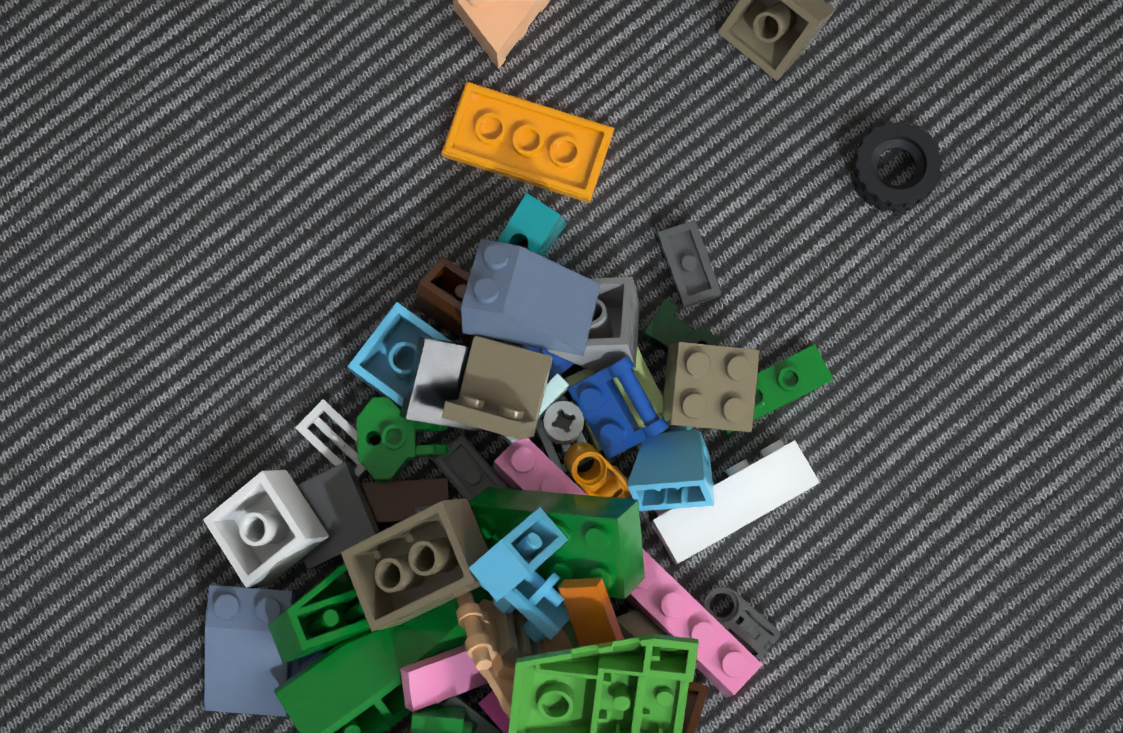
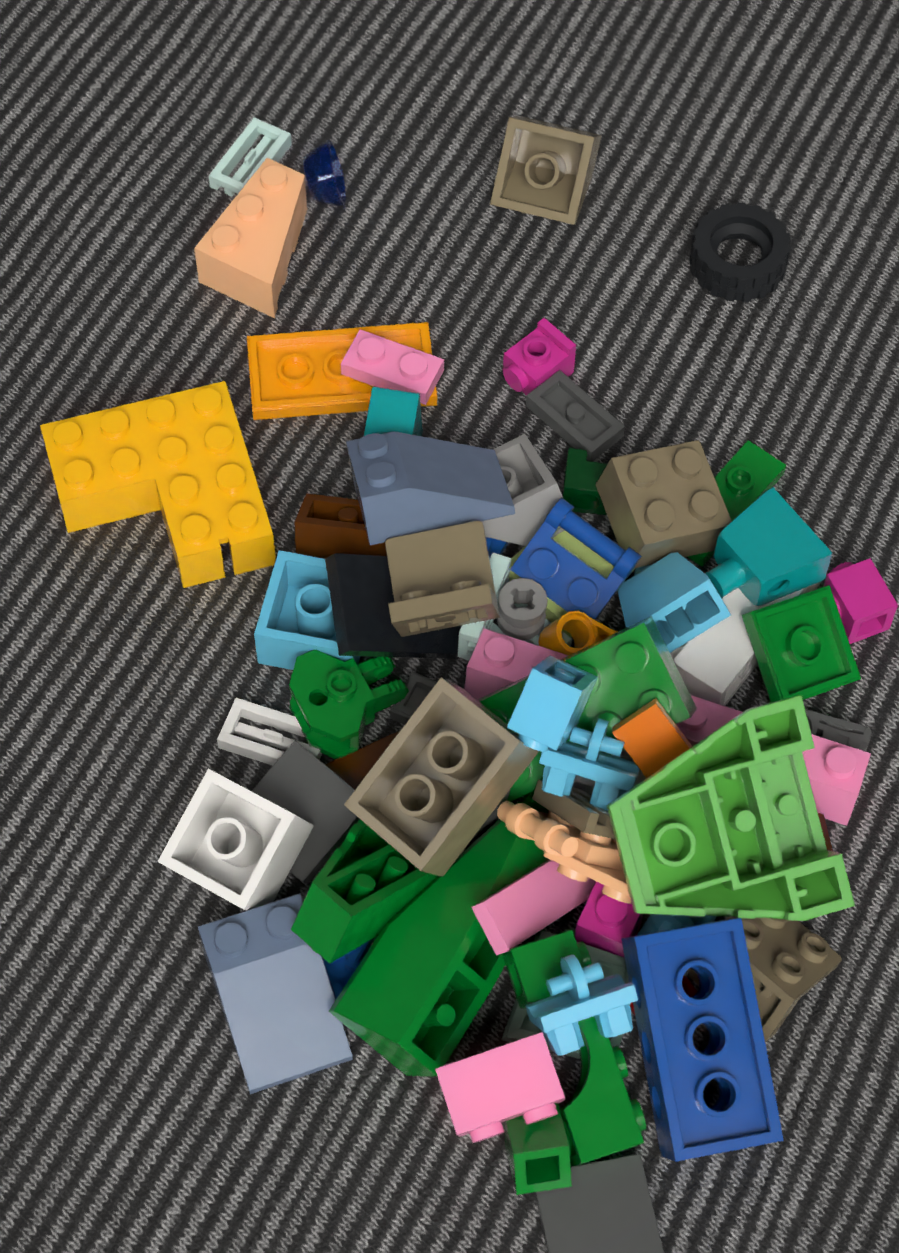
camera: 25 degrees left, 20 degrees down
(366, 177) = (172, 457): none -> yellow piece
(564, 161) = (392, 365): none -> bright pink plate
(699, 206) = (538, 358): none -> dark pink brick
(759, 548) = (801, 646): none -> green tile
(765, 466) = (768, 552): none -> teal torso
(825, 521) = (861, 599): none -> dark pink brick

